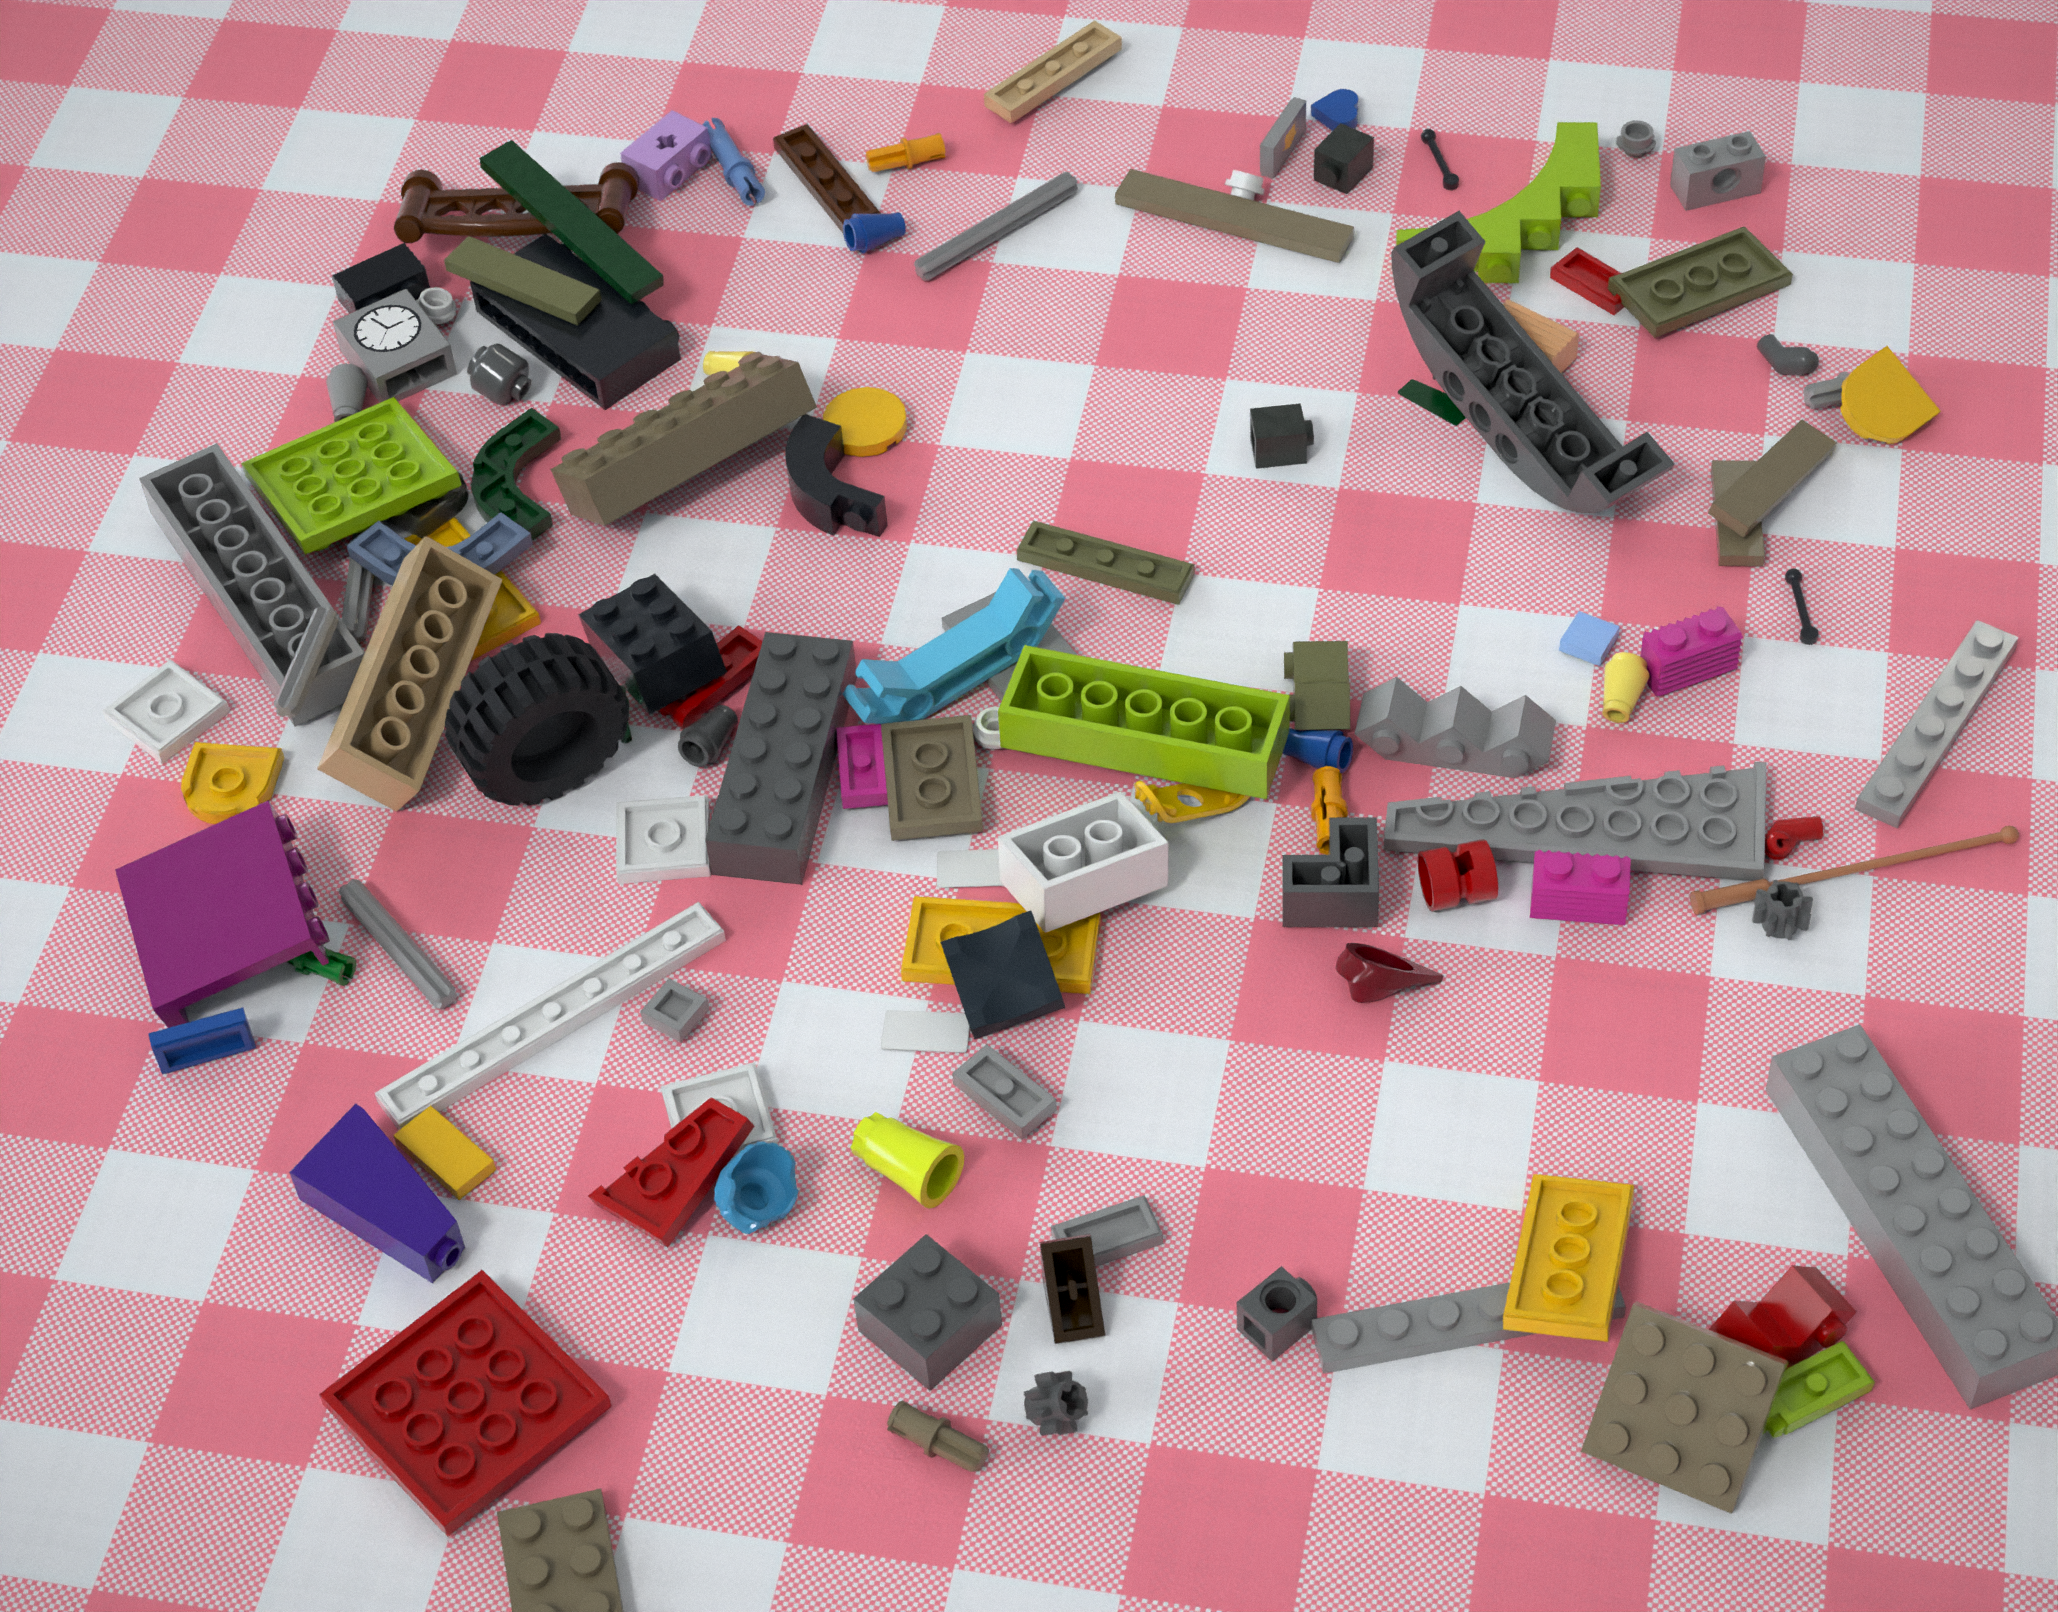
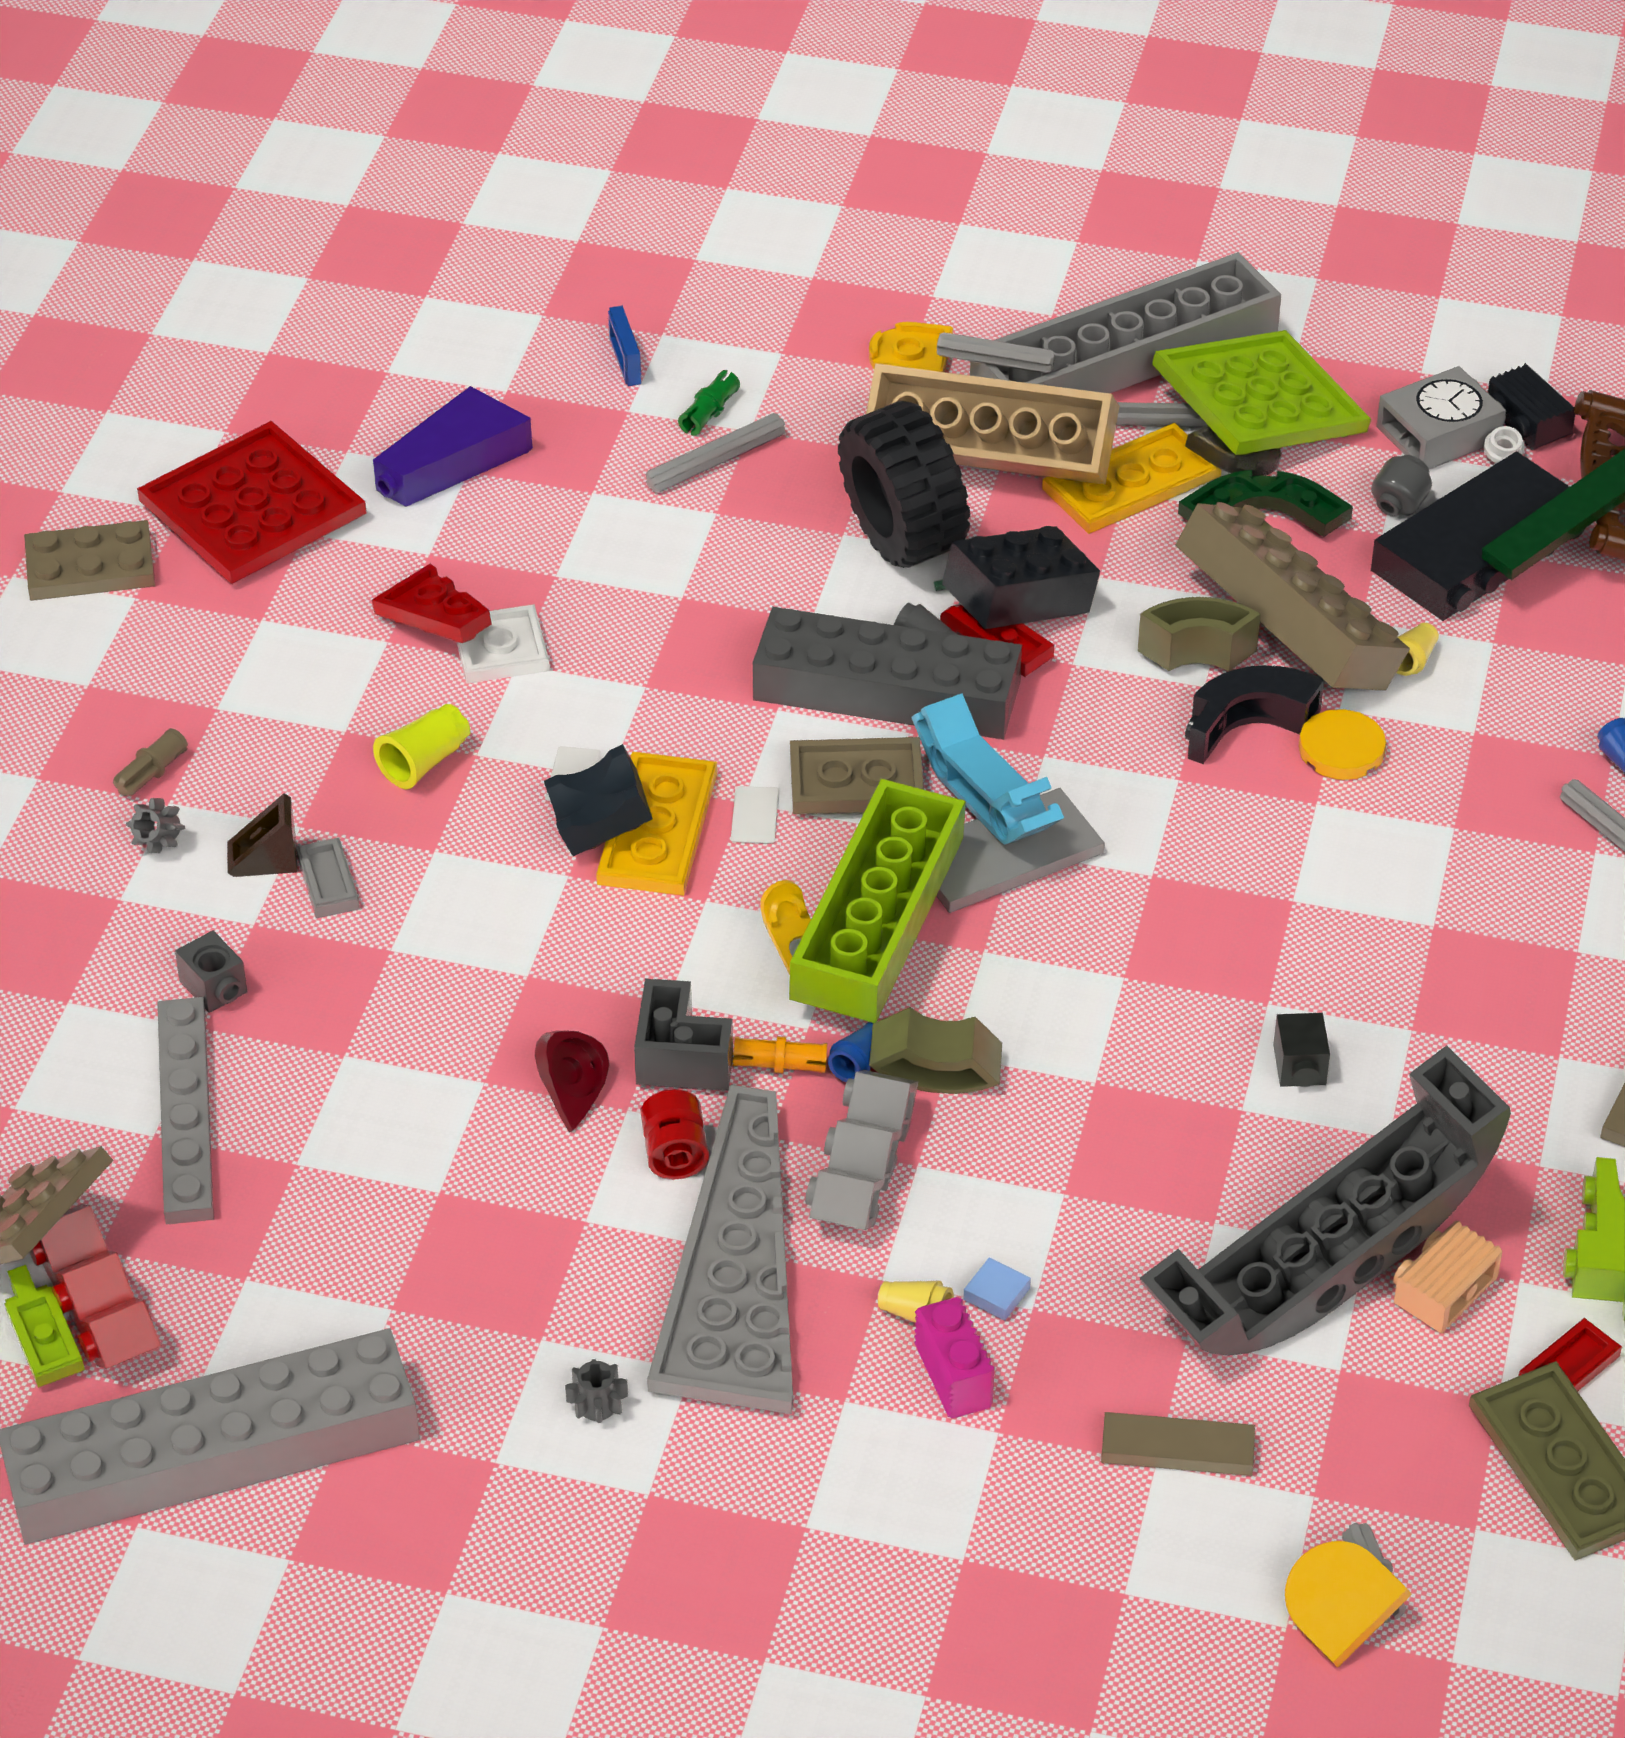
camera: 90 degrees right, 5 degrees down
(166, 711) = (995, 310): white tile -> none
(220, 909) = (745, 340): magenta panel -> none
(346, 390) = (1368, 392): light grey cone -> none
(444, 1152) = (495, 487): yellow tile -> none
(490, 547) = (1135, 454): sand blue plate -> none
(523, 280) = (1509, 480): olive tile -> none
(551, 1016) = (628, 548): white tile -> none
(662, 839) = (815, 594): white tile -> none
(674, 1010) = (611, 610): light grey plate -> none
(729, 510) = (1198, 632): none -> olive brick
(757, 1187) = (407, 651): dark azure hair -> none
(861, 766) = (873, 723): dark pink plate -> none
(928, 1312) = (262, 752): dark grey brick -> none
(1004, 1091) = (485, 812): light grey plate -> none
(1083, 861) = (714, 852): white brick -> none
(1106, 562) = (1135, 916): olive tile -> none
(1569, 1257) = (216, 1168): yellow tile -> none
(1580, 887) = (645, 1228): dark pink brick -> none
(1747, 891) = (627, 1336): nougat piece -> none
(1772, 478) = (1218, 1472): dark tan tile -> none
(1786, 834) = (701, 1416): red arm -> none
(1787, 359) = (1431, 1521): dark grey arm -> none
(1808, 633) = (992, 1485): black hinge -> none
(1936, 724) = (849, 1581): light grey plate -> none

